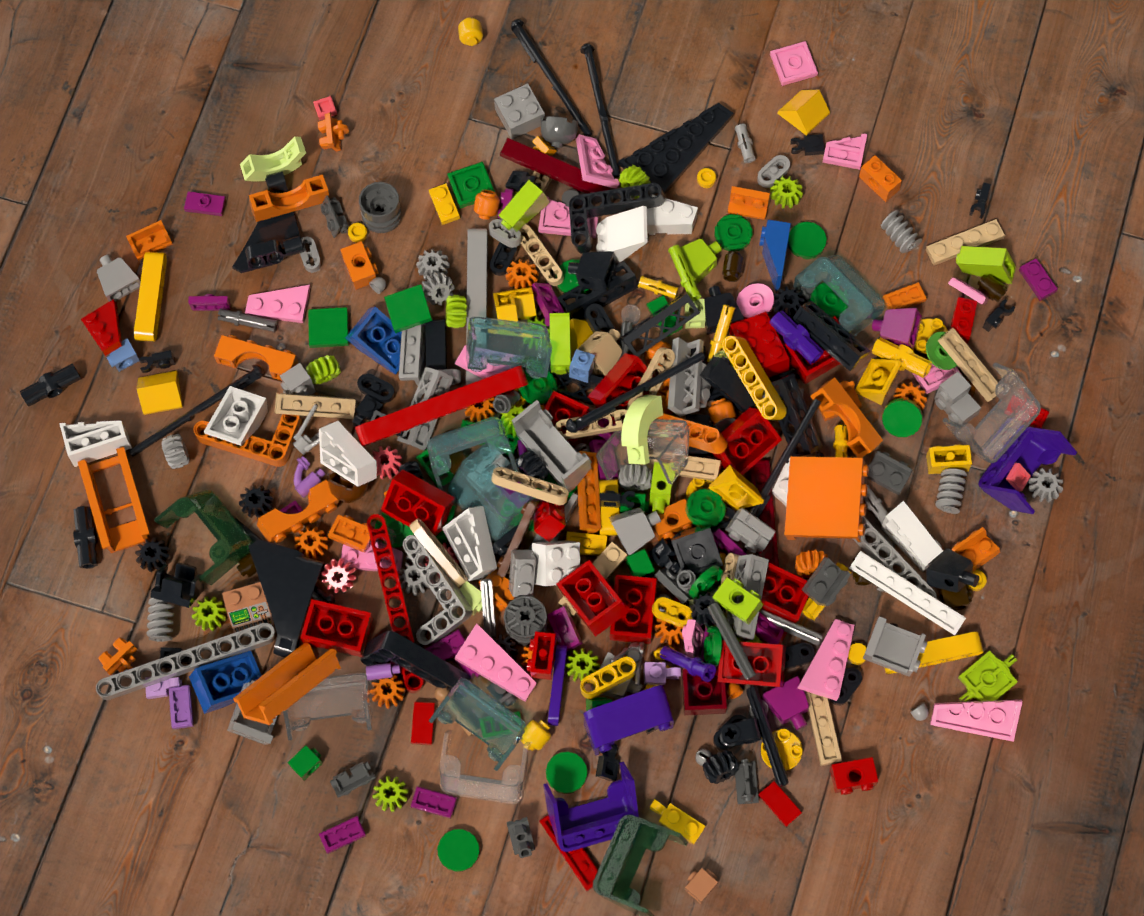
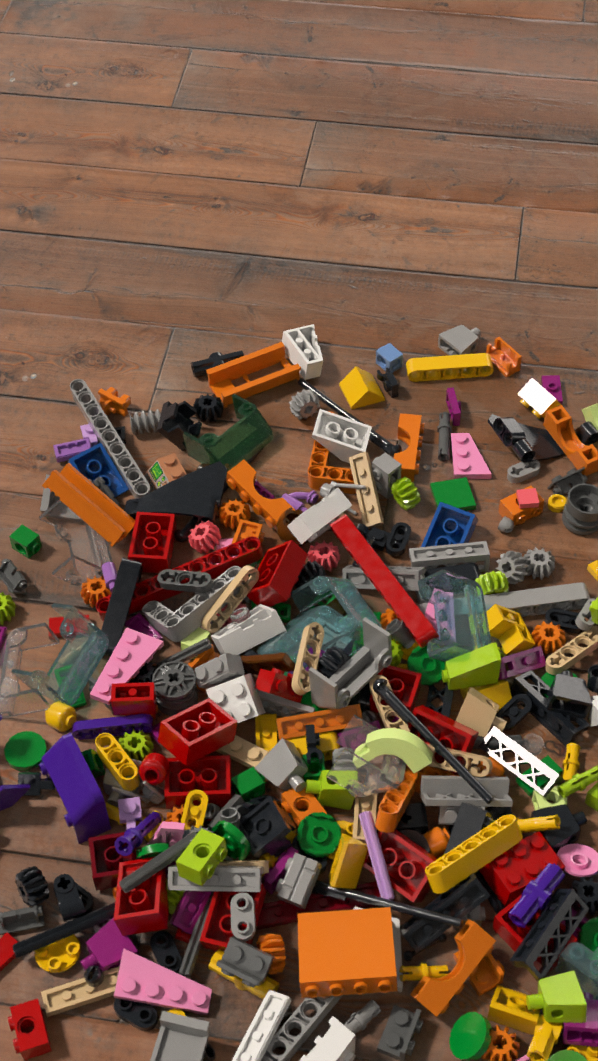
camera: 80 degrees right, 20 degrees down
(50, 385) = (351, 319): black piece -> none
(104, 327) = (410, 339): red wing -> none
(207, 607) = (157, 450): lime gear -> none
(222, 217) = (537, 398): none -> brick
(255, 673) = (100, 483): none -> dark grey axle
(263, 502) = (269, 468): black gear -> none
(359, 255) = (527, 498): none -> coral tile
(408, 308) = (481, 542): green tile -> none
(410, 609) = (196, 584): none -> dark grey beam
(457, 547) = (240, 615): none -> clear tile
(581, 366) = (453, 692): medium blue brick -> none
(624, 643) = (154, 768): none -> red head
(701, 760) = (51, 874): light grey hinge -> none
(740, 459) = (376, 855): none -> lavender axle
(786, 578) = (243, 915): none -> light grey plate
(812, 720) = (97, 978): none -> black hinge
(886, 340) = (559, 999): none -> lime torso

